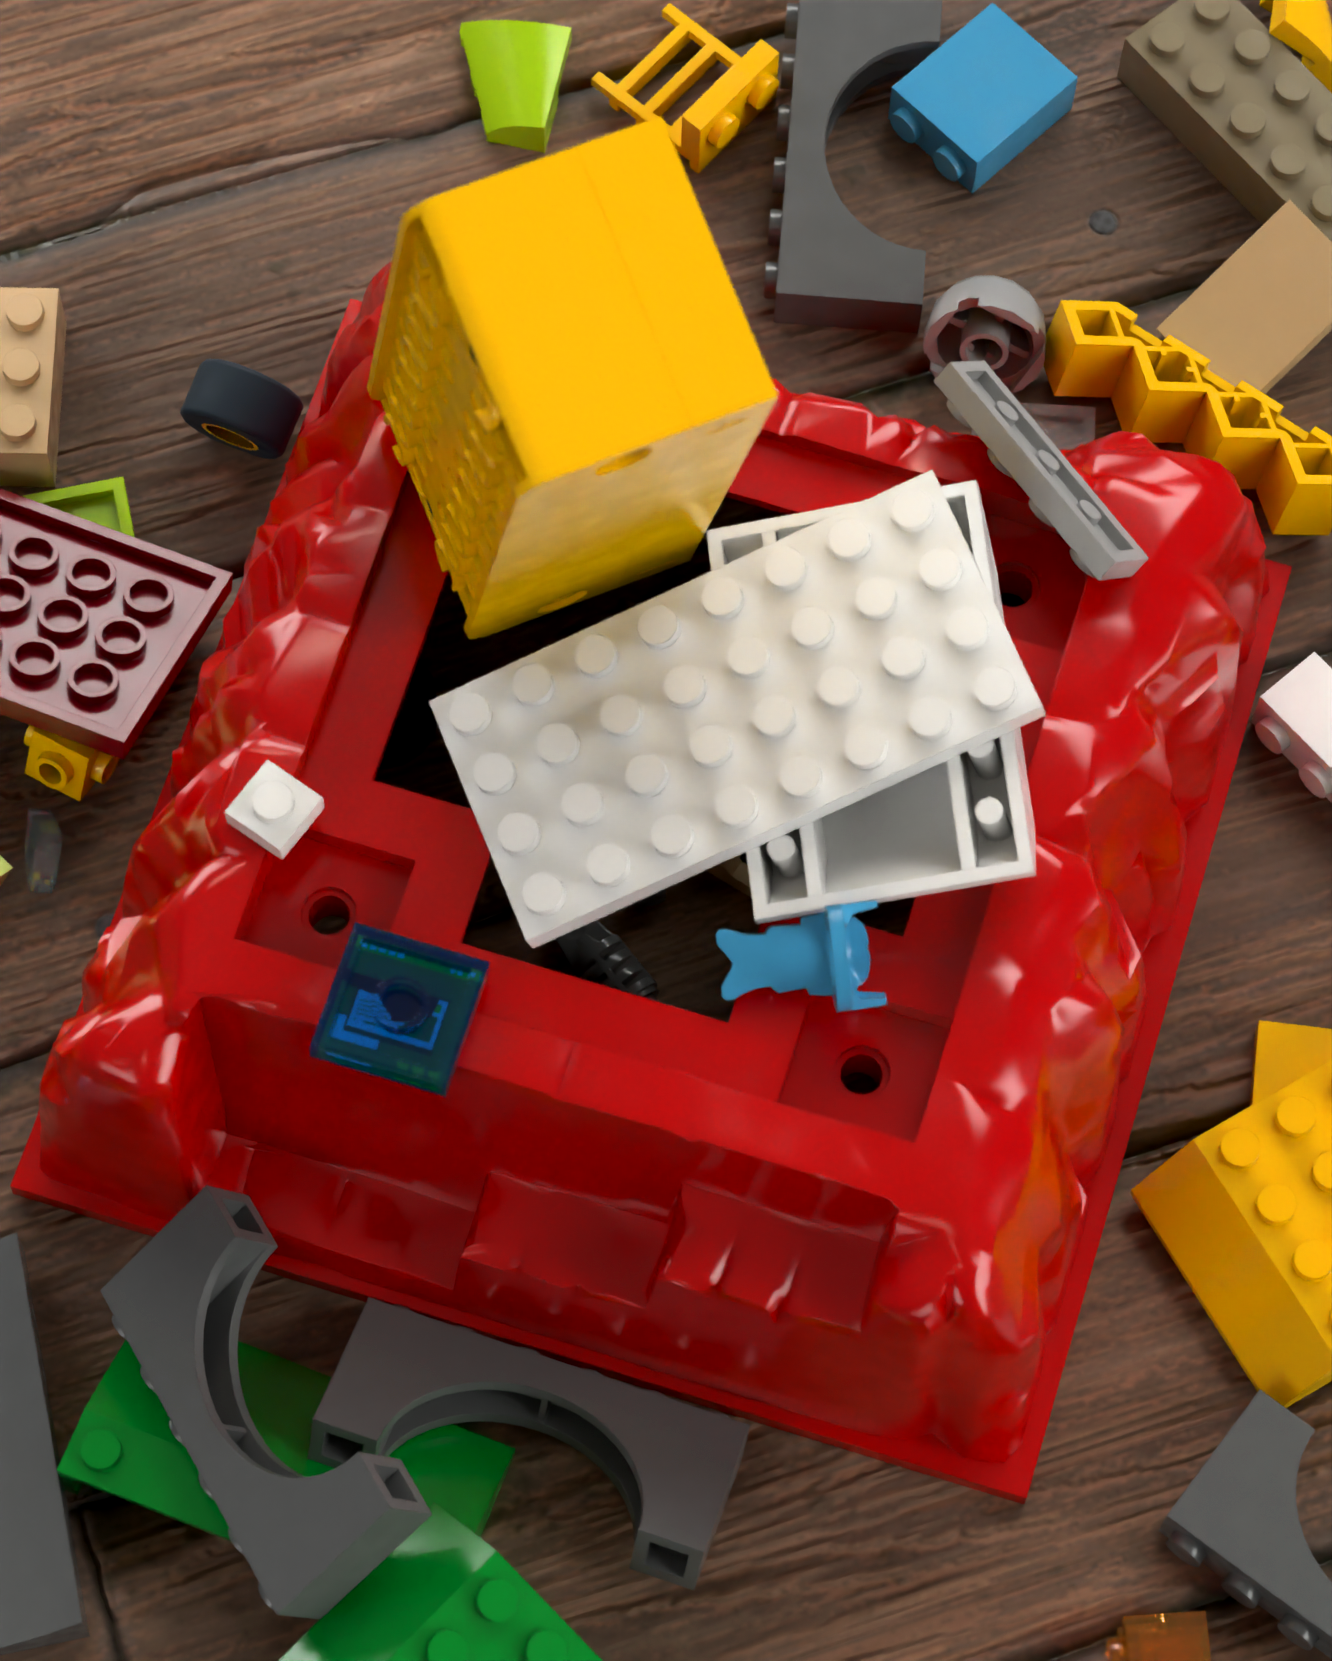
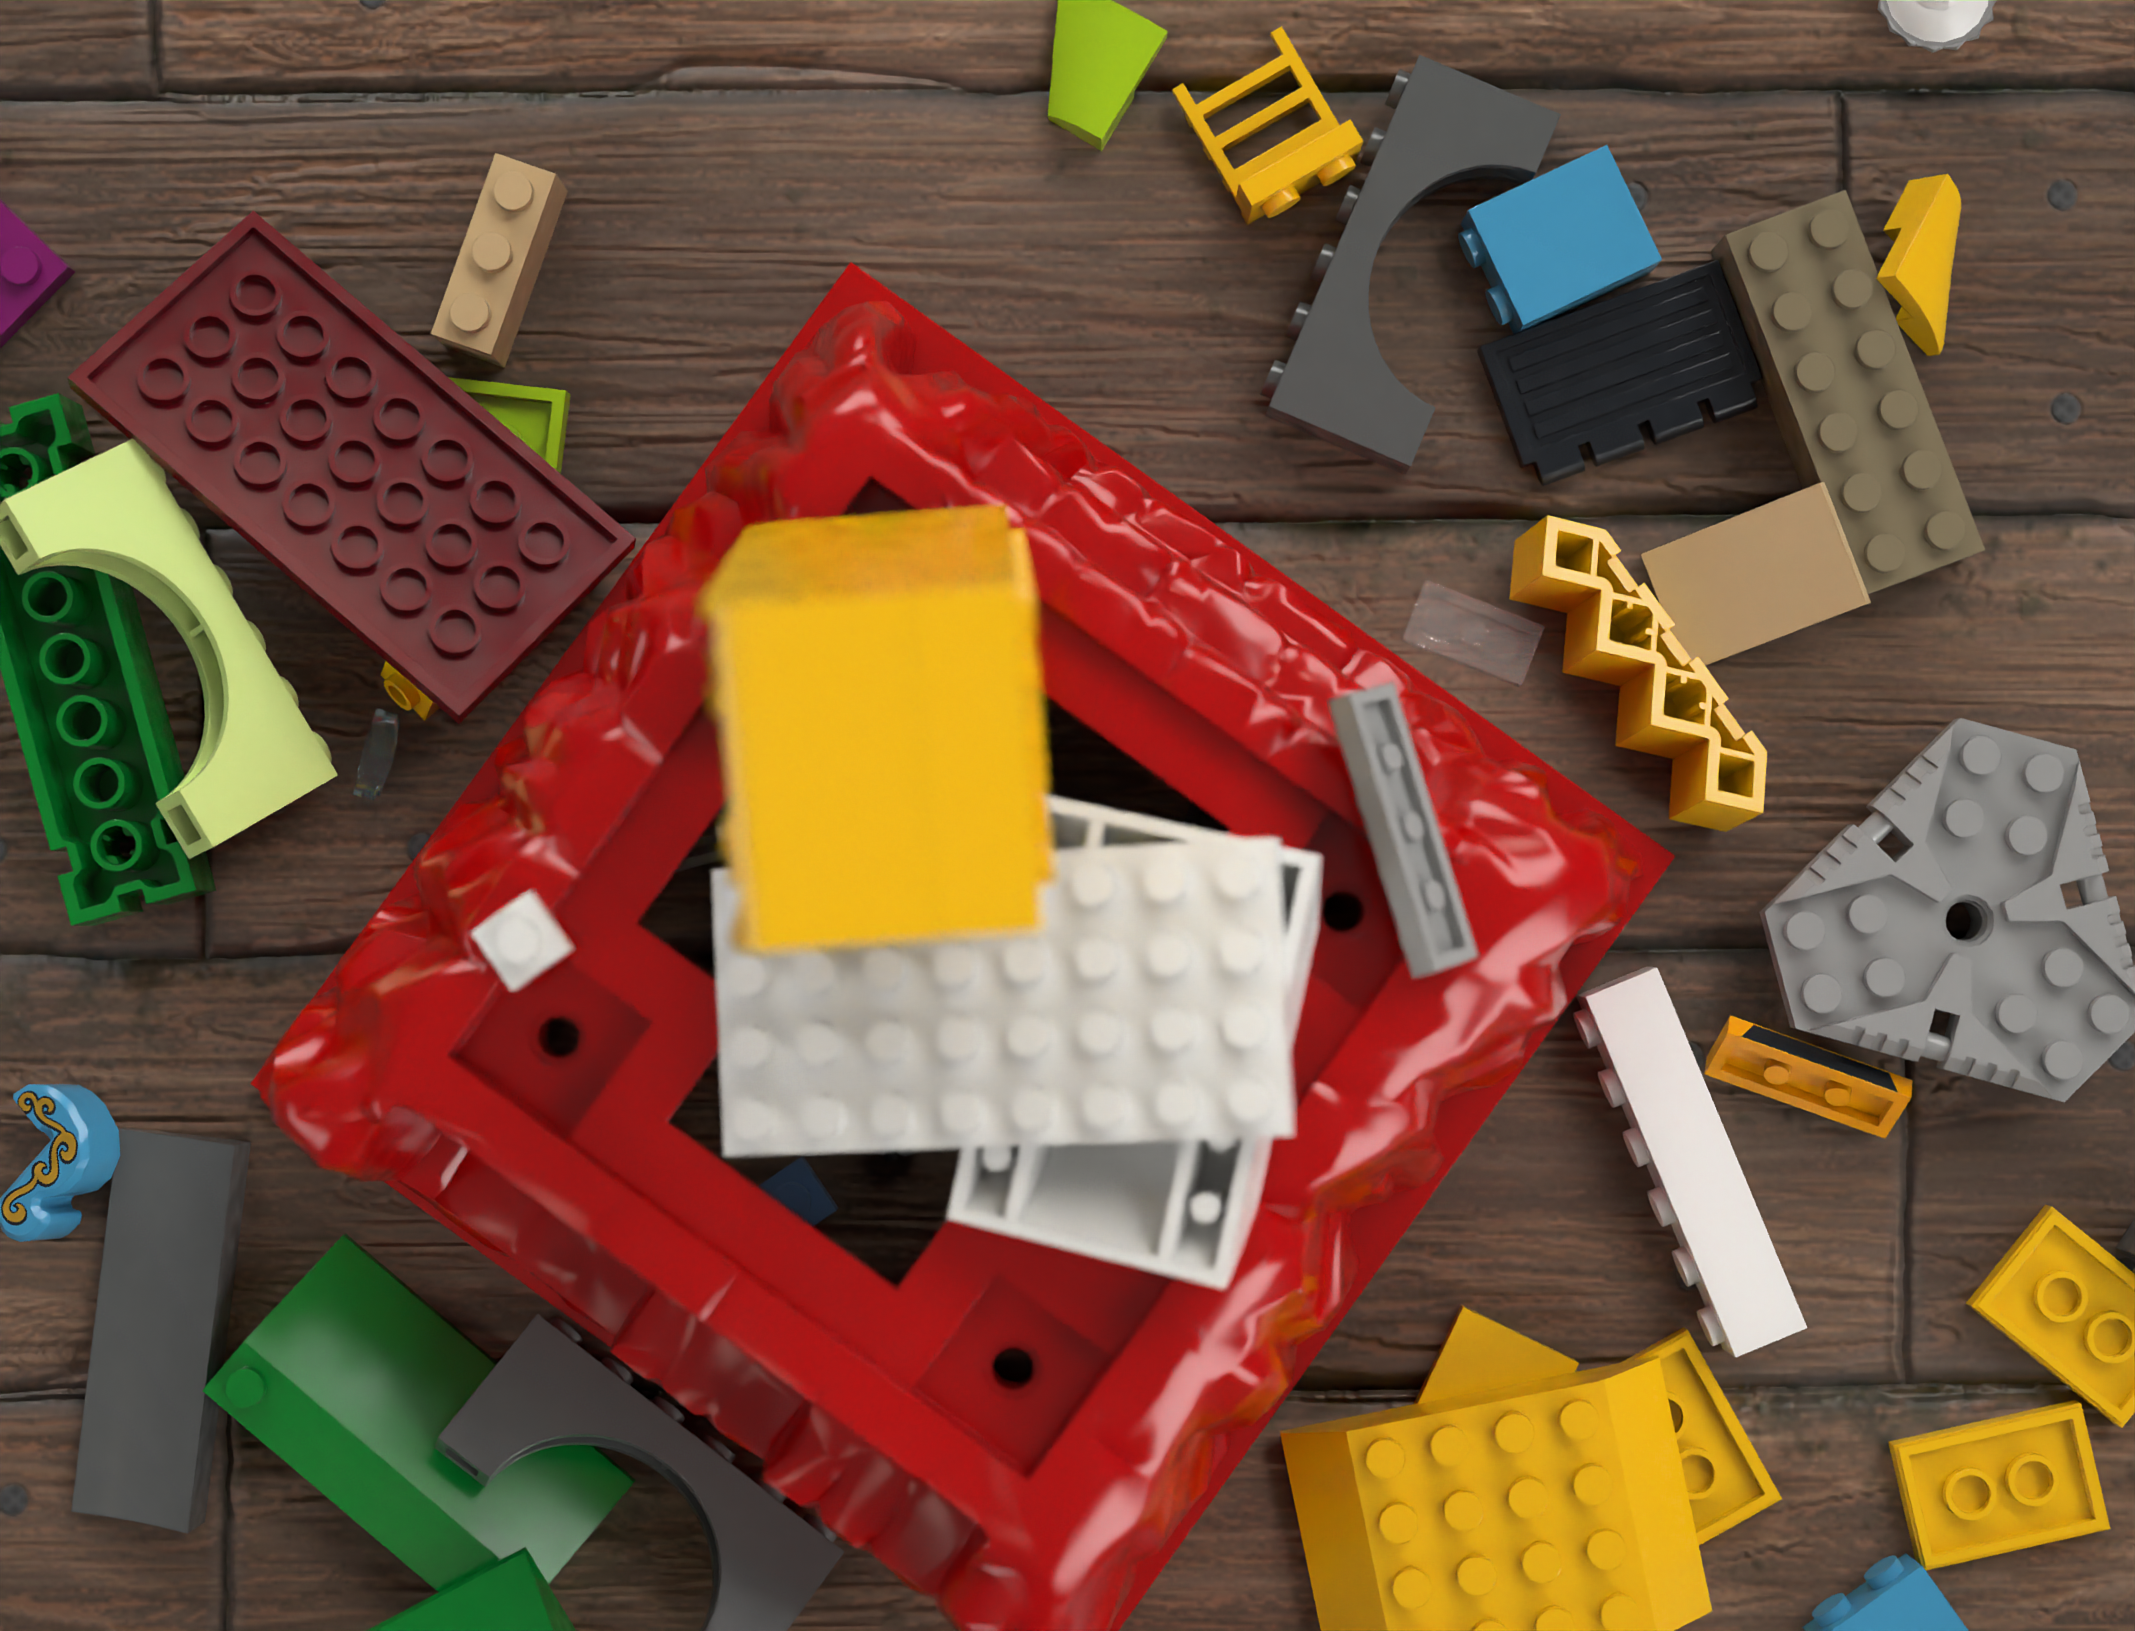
camera: 30 degrees right, 20 degrees up
(182, 1318) = (383, 1544): dark grey arch -> none
(241, 408) = (700, 358): black wheel -> none
(399, 1009) = (579, 1187): tile -> none
(819, 953) = (995, 1264): dark azure hair -> none
(988, 322) = (1464, 512): light grey cylinder -> none
(1076, 188) = (1621, 367): none -> black hinge

